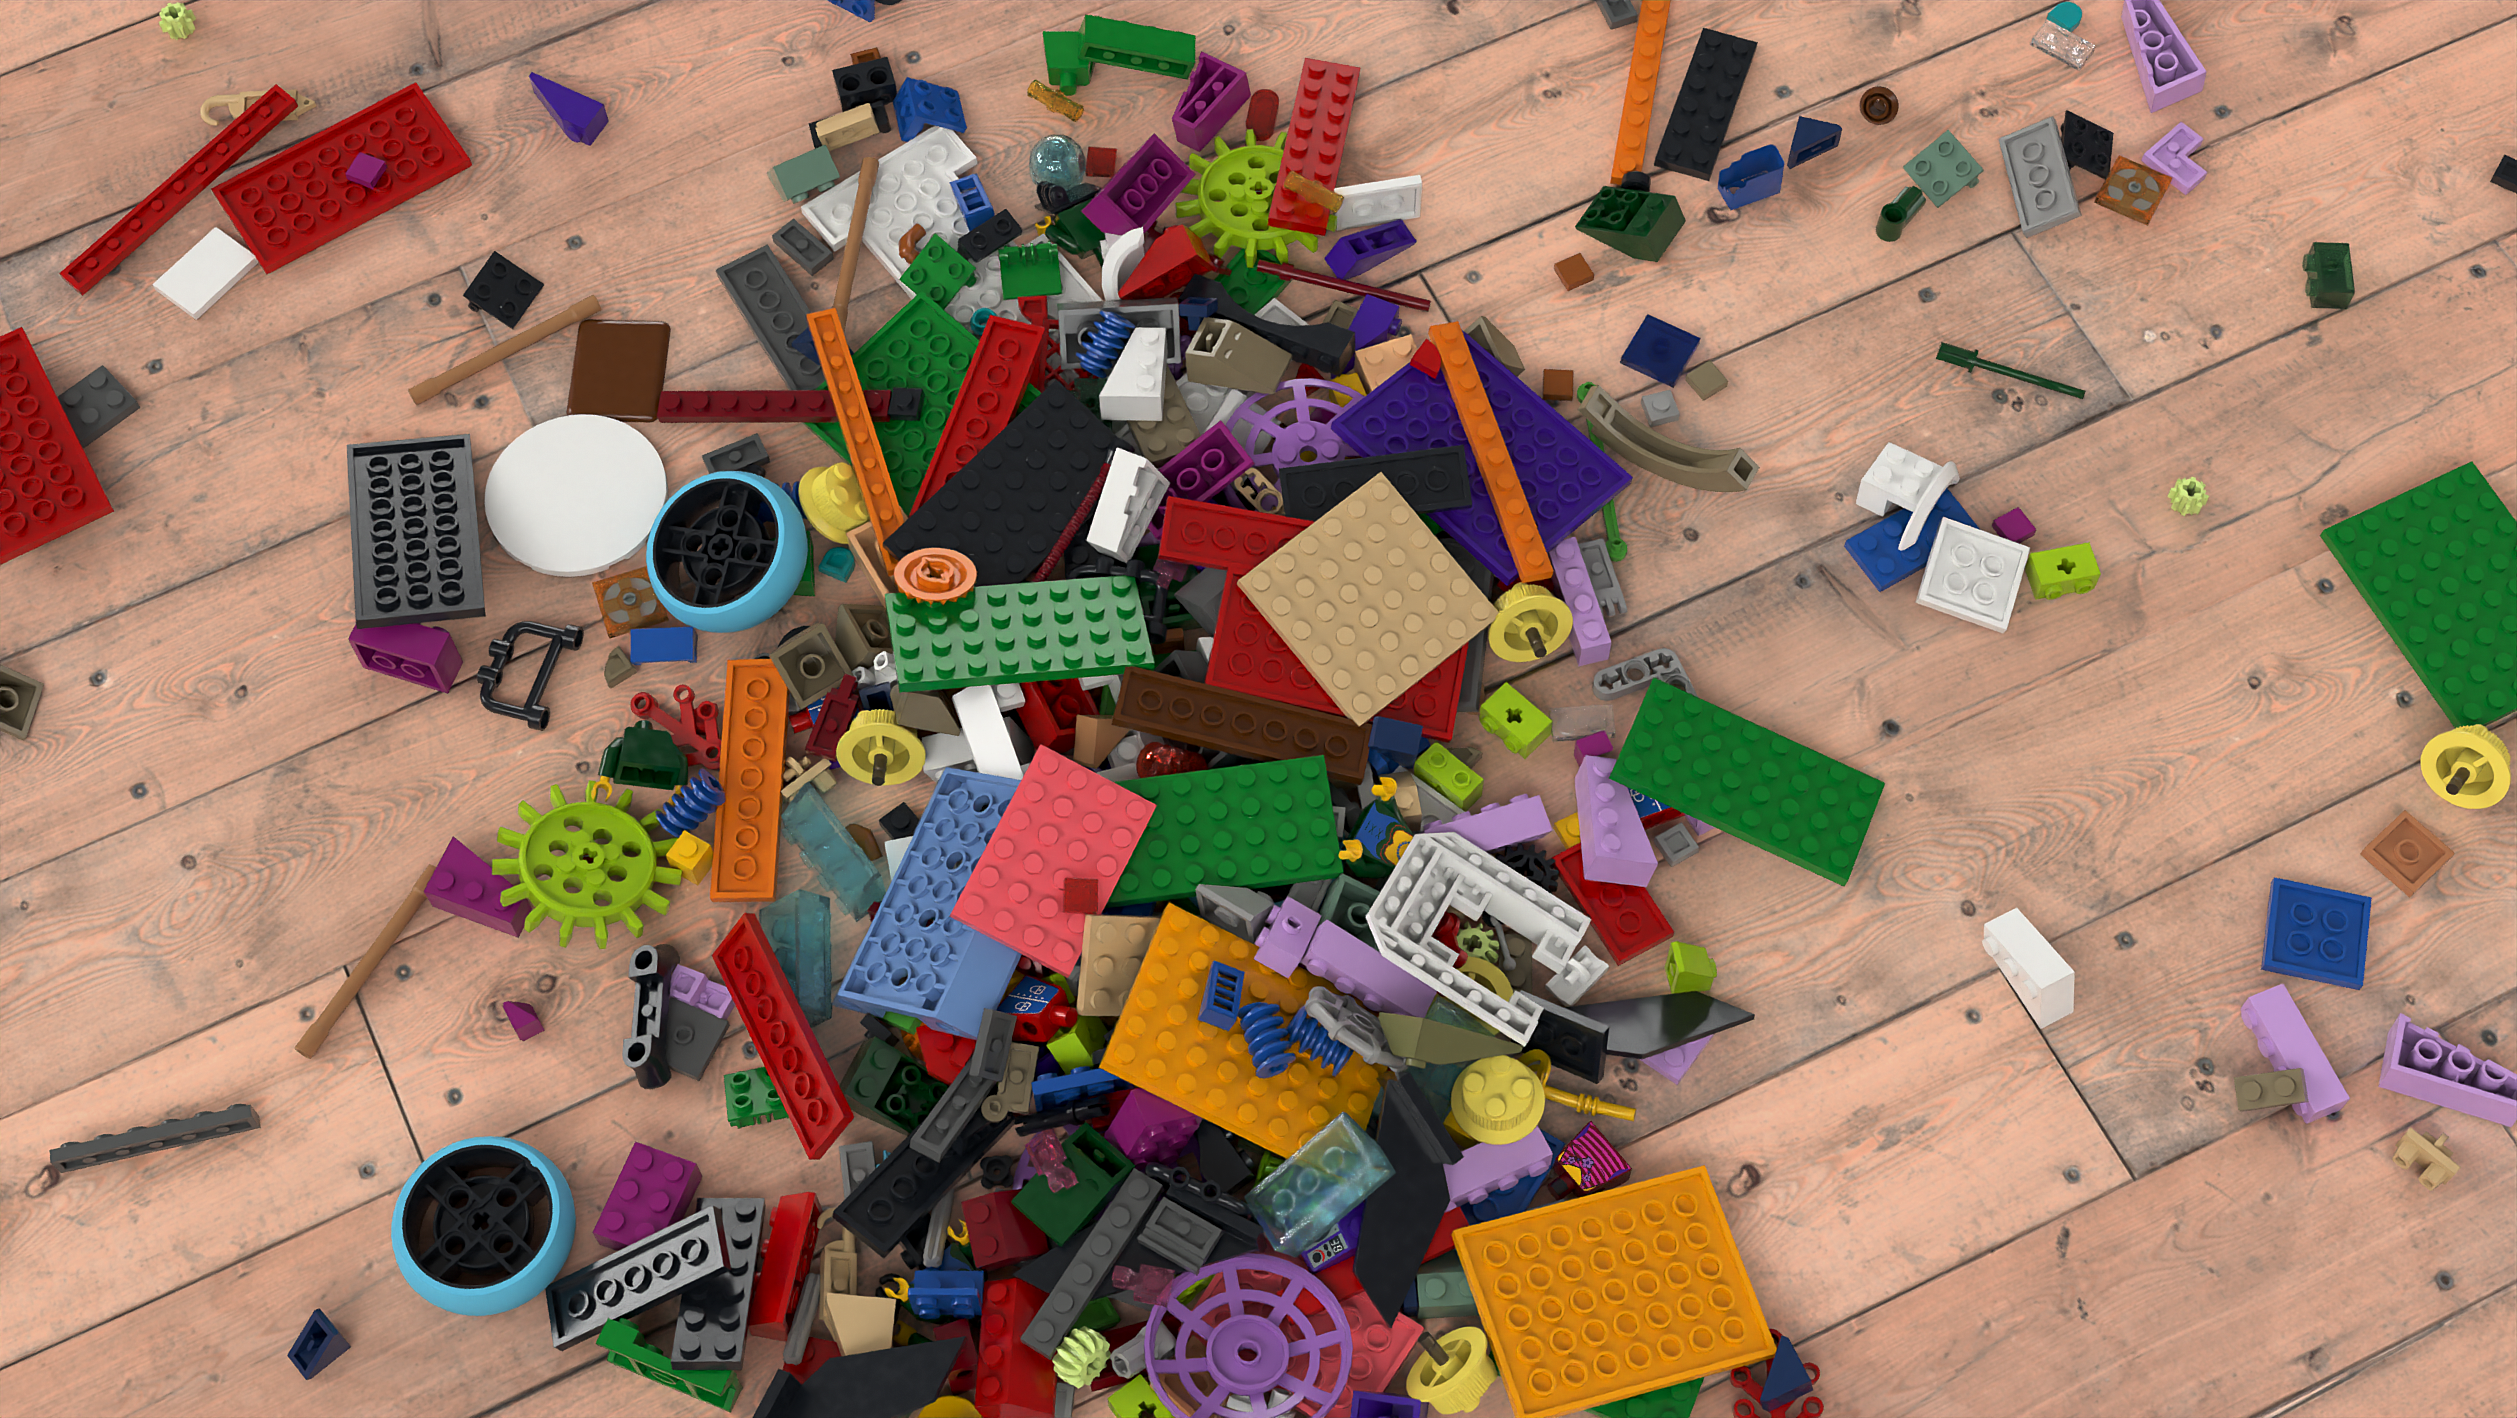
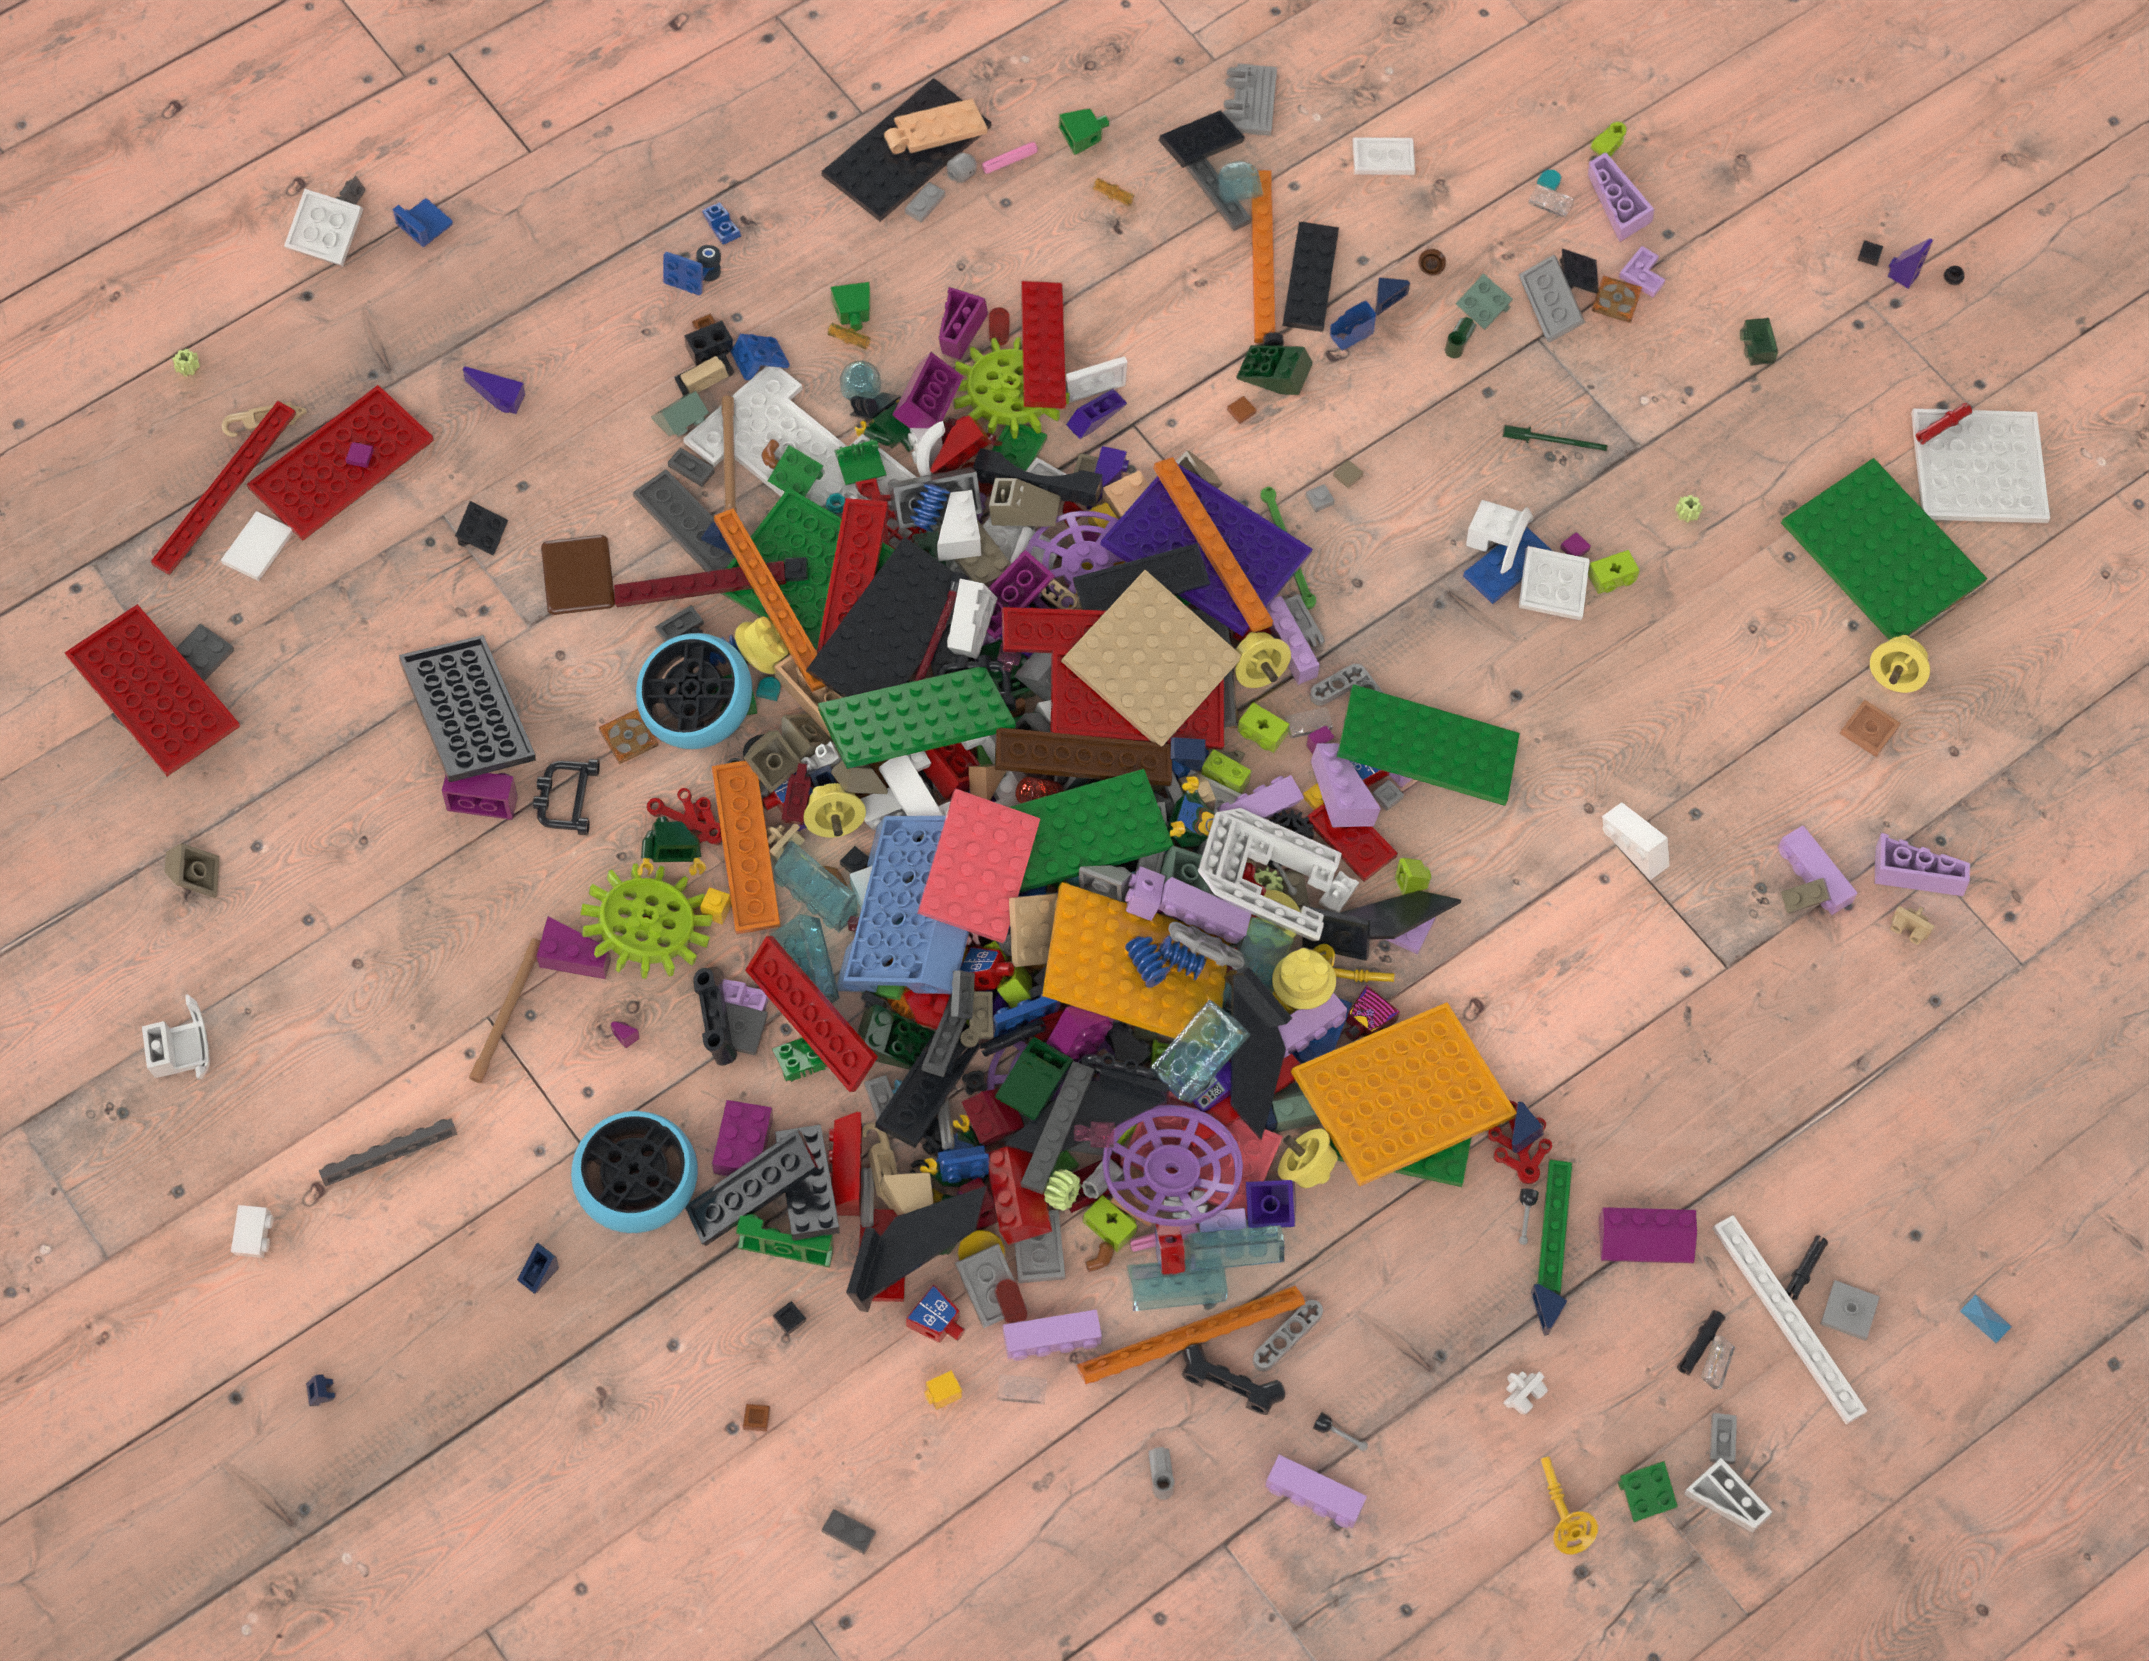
camera: 15 degrees left, 0 degrees up
(434, 386) = (448, 604): medium nougat piece -> none
(575, 495) = (570, 667): white tile -> none
(618, 668) = (630, 784): dark tan tile -> none
(663, 645) = (660, 763): blue hinge -> none
(694, 806) = (711, 869): blue piece -> none
(954, 569) = (837, 682): orange gear -> none
(973, 203) = (812, 424): blue slope -> none
(989, 236) = (828, 442): black bracket -> none
(1047, 1159) = (1015, 1062): clear pink plate -> none
(1080, 895) = (1003, 886): clear red tile -> none
(1101, 162) = (891, 376): clear red tile -> none
(1136, 46) = (900, 289): green brick -> none
(1180, 1236) = (1113, 1100): dark grey plate -> none
(1196, 309) = (989, 474): dark blue tile -> none
(1214, 1014) = (1105, 947): blue slope -> none
(1287, 272) = (1043, 438): dark red bar -> none
(1313, 191) = (1053, 378): clear yellow pin -> none
(1427, 359) = (1157, 486): red tile -> none
(1438, 1043) = (1261, 945): olive wedge -> none
(1558, 384) = (1246, 491): dark orange tile -> none
(1660, 350) = (1312, 457): clear blue plate -> none
(1665, 457) = (1329, 531): dark tan arch -> none
(2316, 933) = (1819, 790): blue plate -> none

